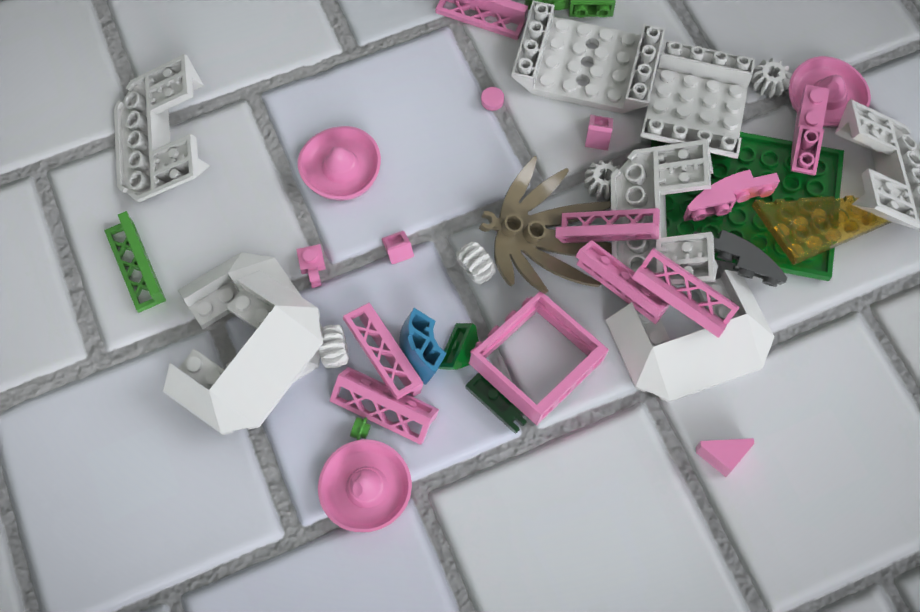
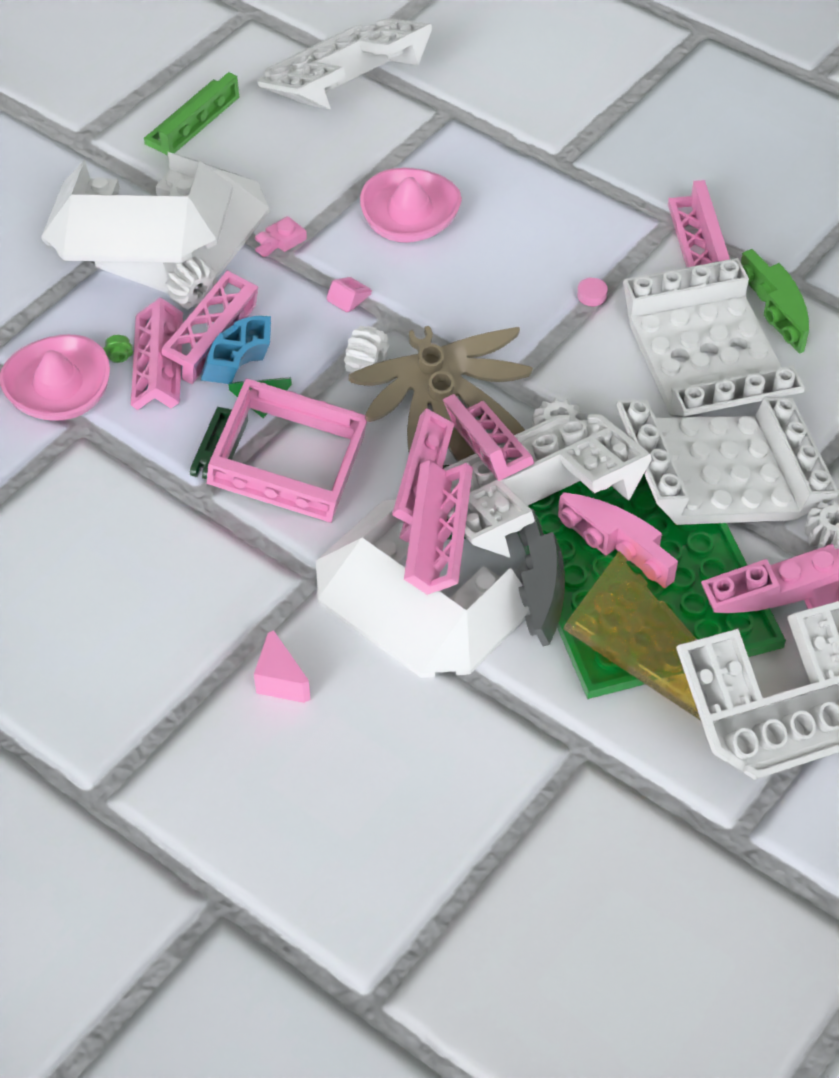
camera: 60 degrees right, 15 degrees down
(599, 132) = (615, 387): bright pink slope -> none

